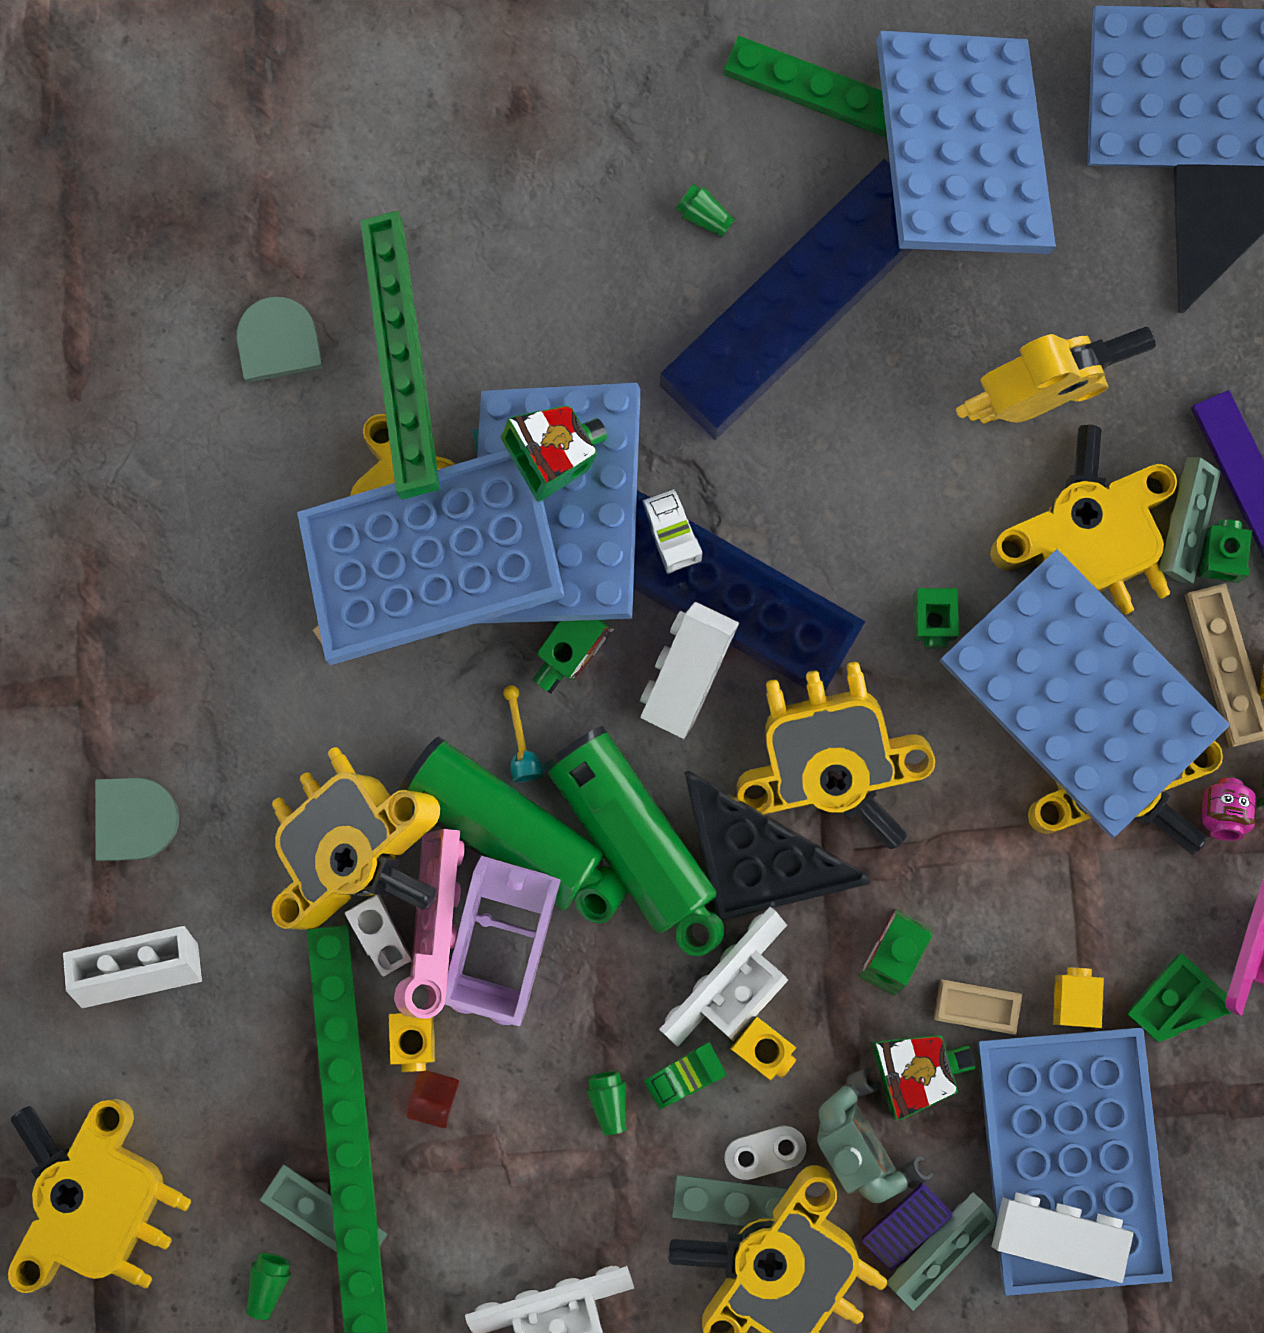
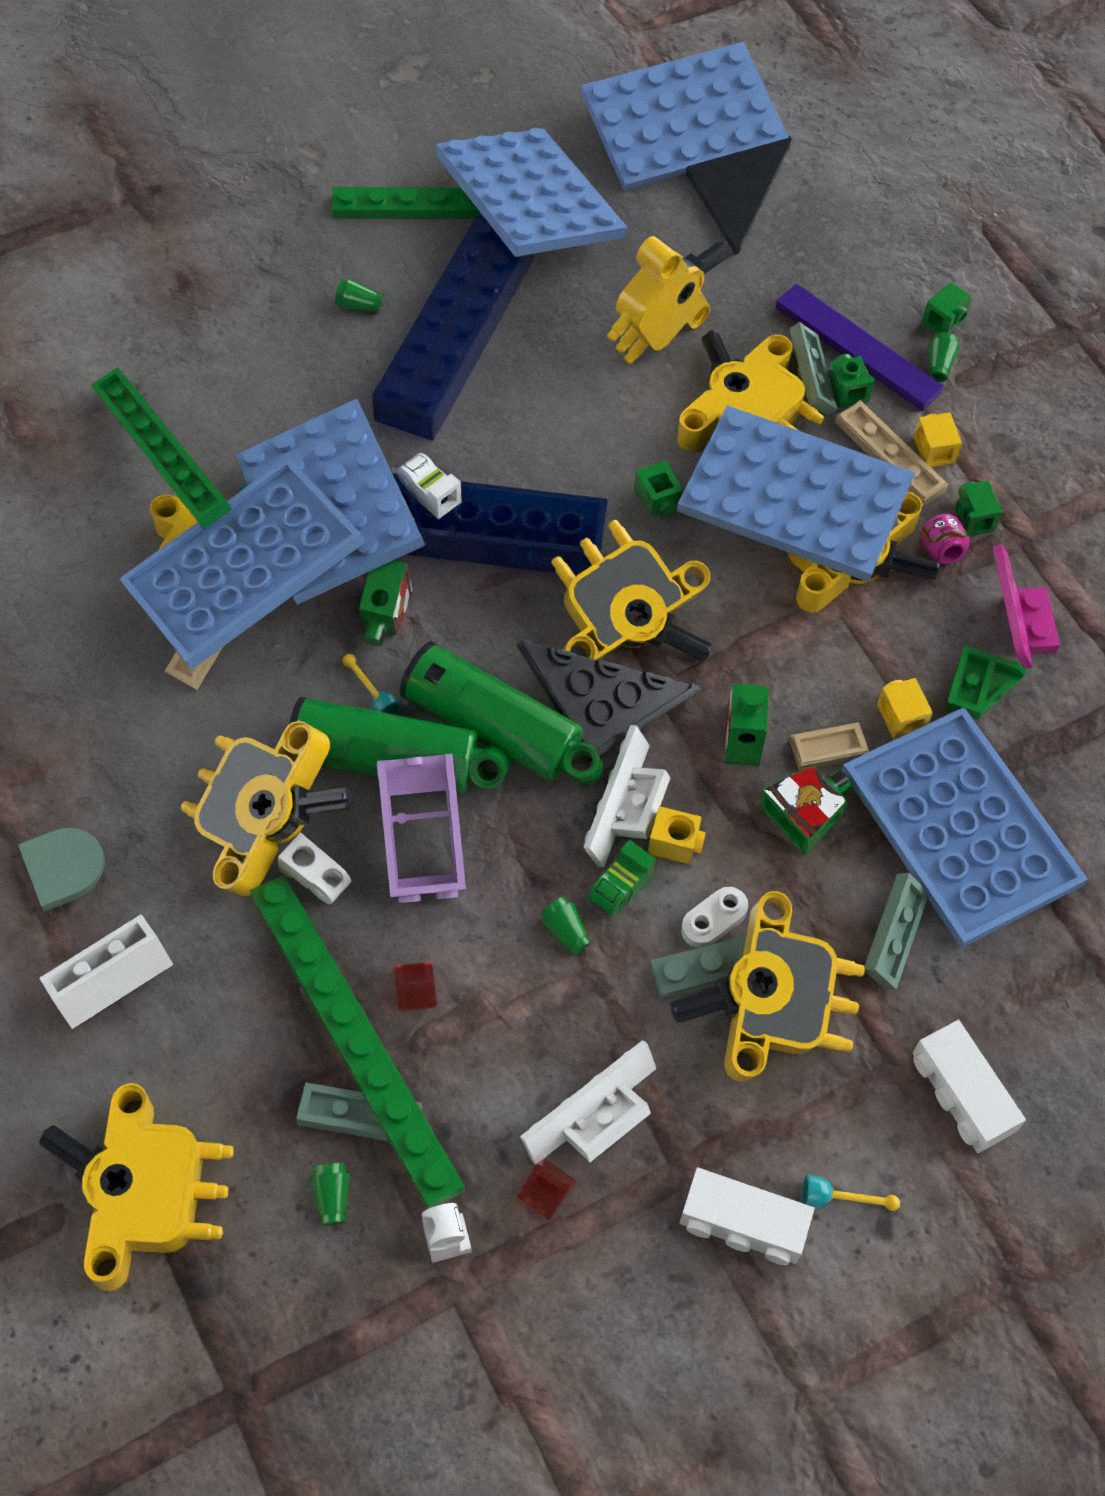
camera: 25 degrees left, 20 degrees down
(277, 340) = (54, 485): sand green tile -> none
(398, 1026) = (377, 925): yellow brick -> none
(433, 927) = (359, 835): bright pink hinge -> none
(552, 447) = (308, 447): torso -> none
(687, 669) = (484, 579): white brick -> none
(856, 1150) = (788, 873): sand green torso -> none
(906, 1226) = (858, 922): tile -> none
(1062, 1237) = (986, 873): white brick -> none

